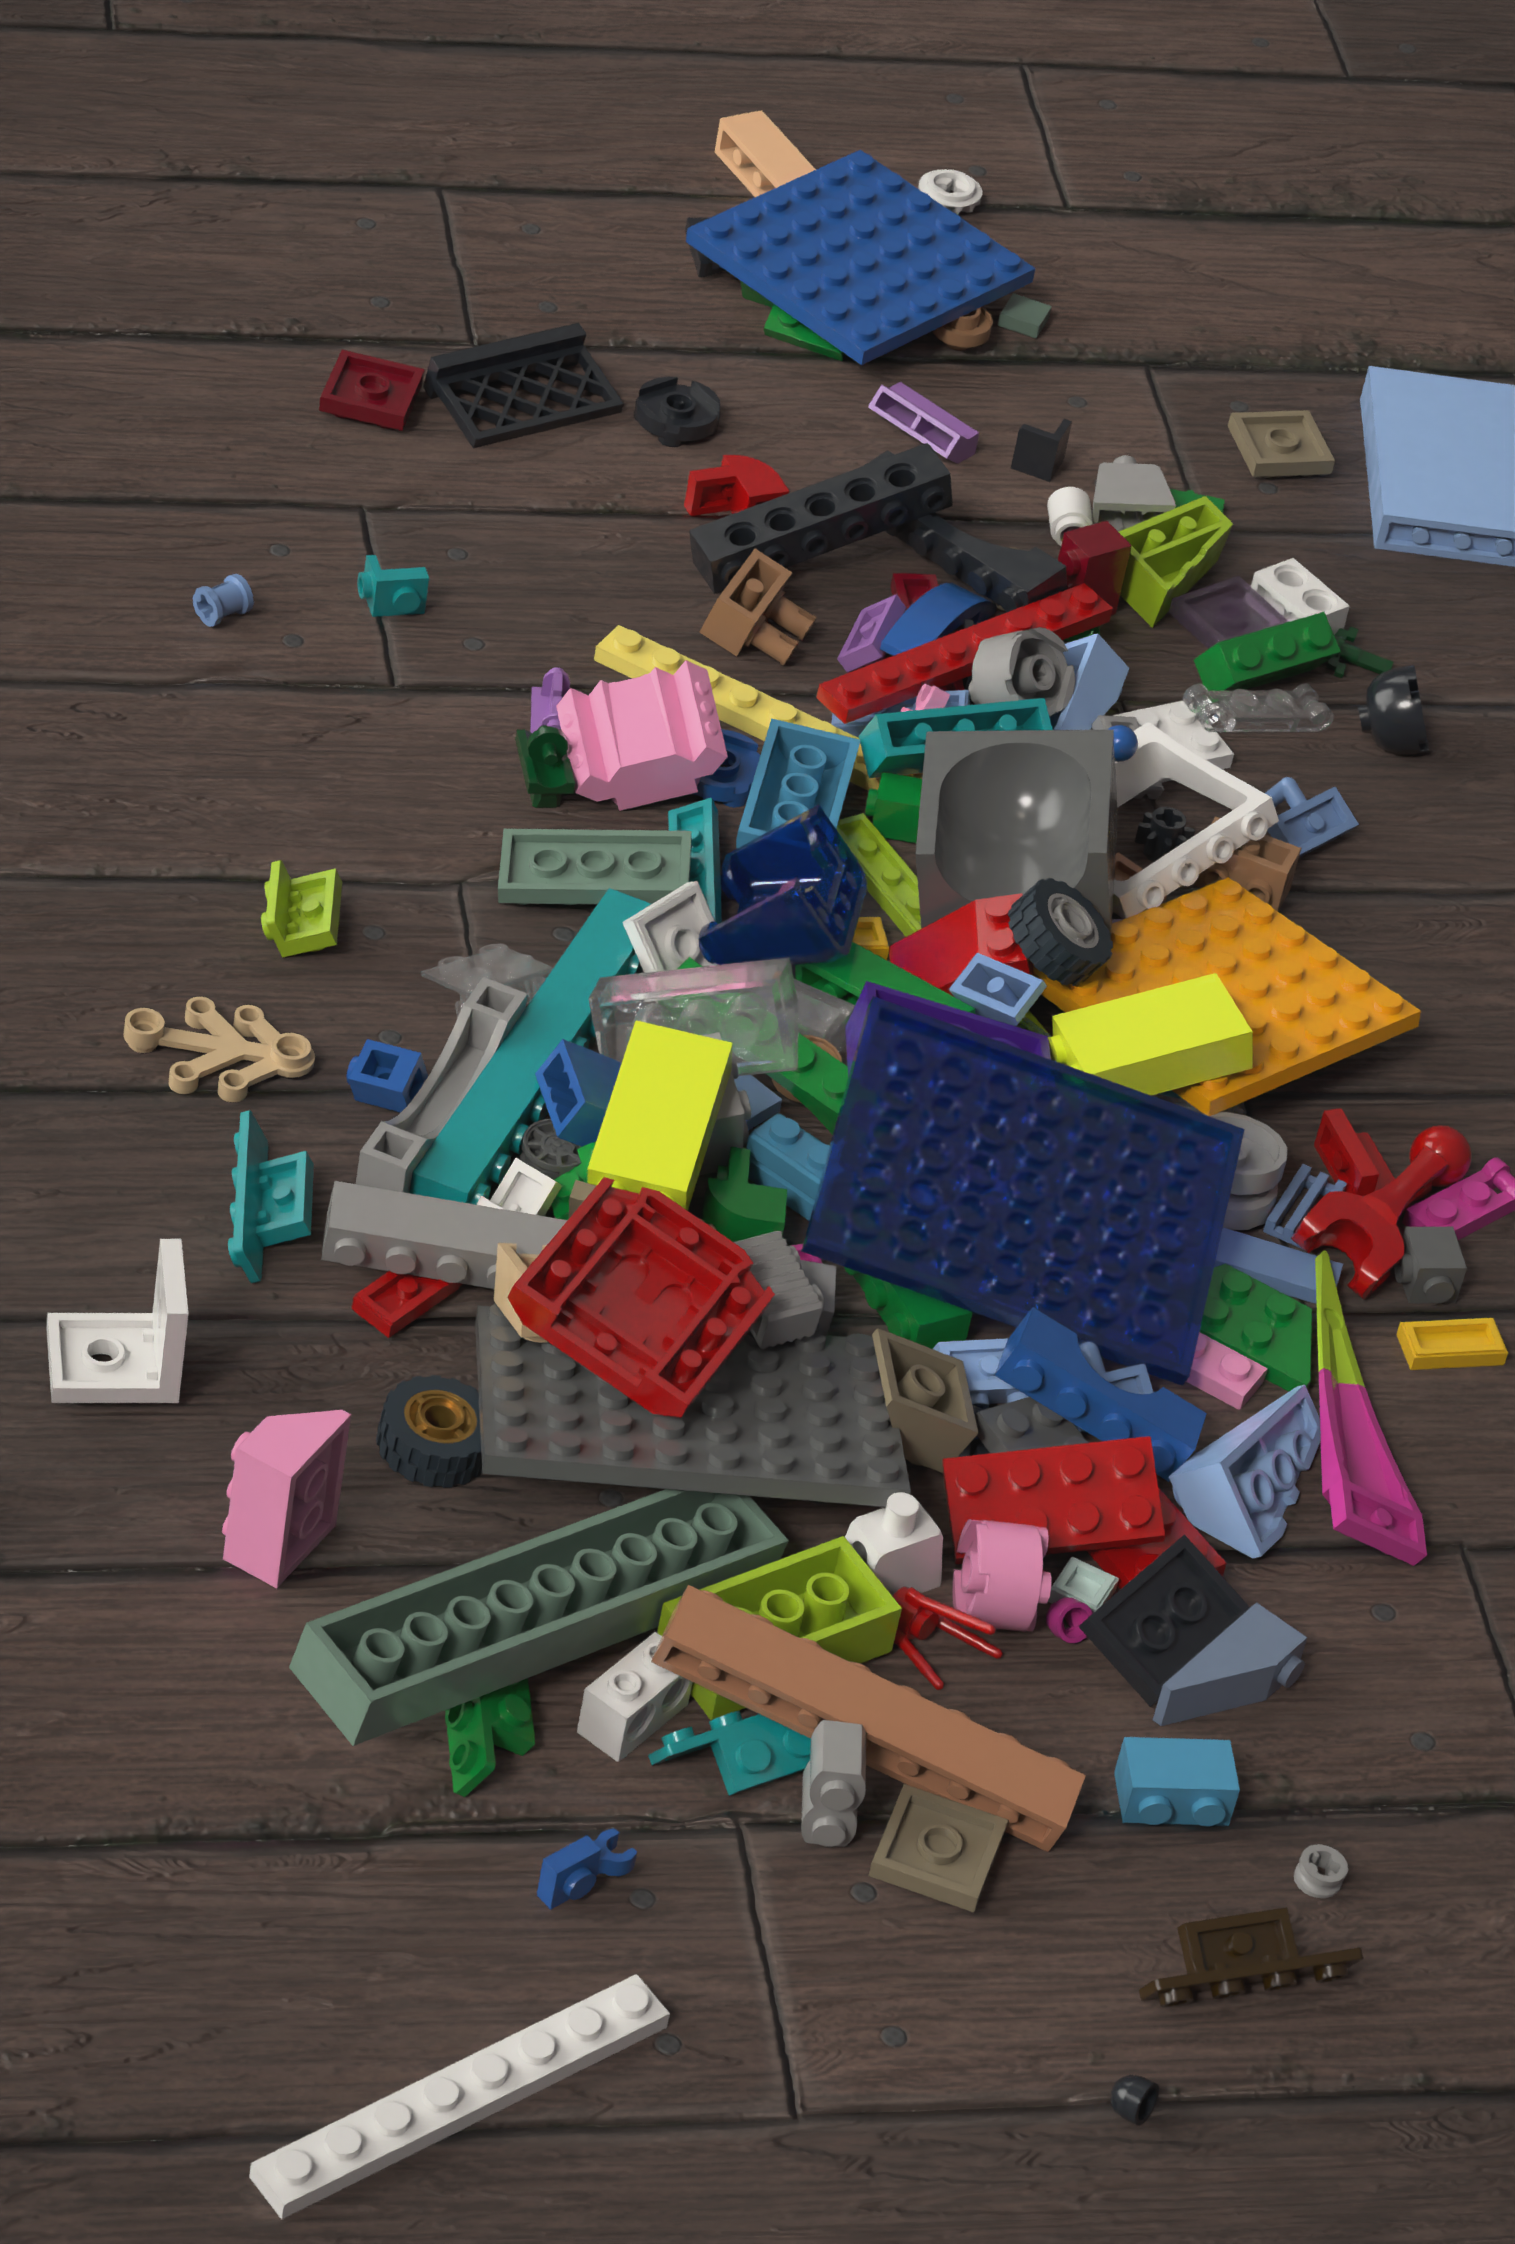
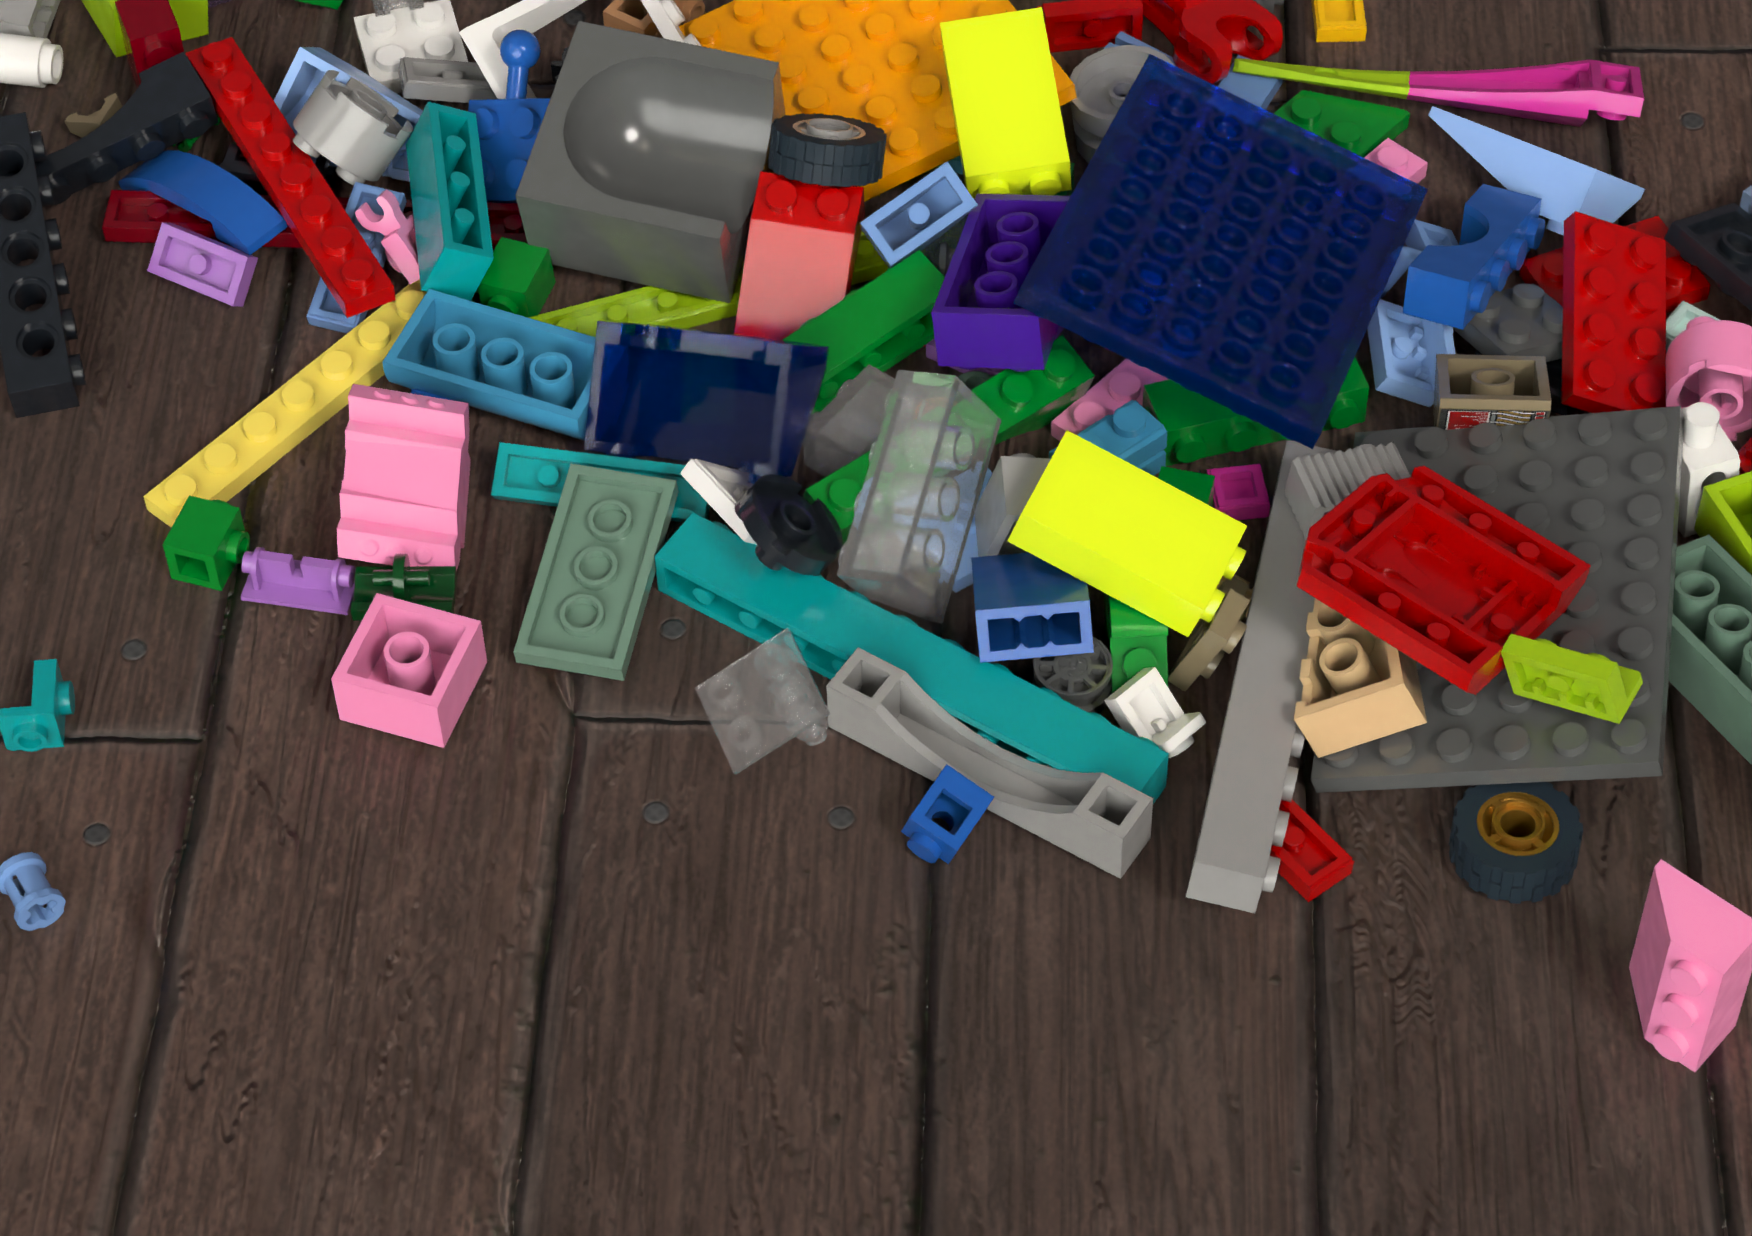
camera: 70 degrees left, 10 degrees up
(143, 1346) = (1411, 1086): white bracket -> none
(270, 1198) = (1142, 949): teal bracket -> none
(279, 1054) = (865, 976): tan plant -> none
(302, 910) = (640, 866): lime bracket -> none
(464, 766) = (409, 670): none -> bright pink brick
(550, 1389) = (1570, 678): none -> lime bracket
(580, 654) = (206, 543): none -> green brick
(646, 913) = (788, 527): none -> black plate
(747, 605) = (151, 360): medium nougat brick -> none

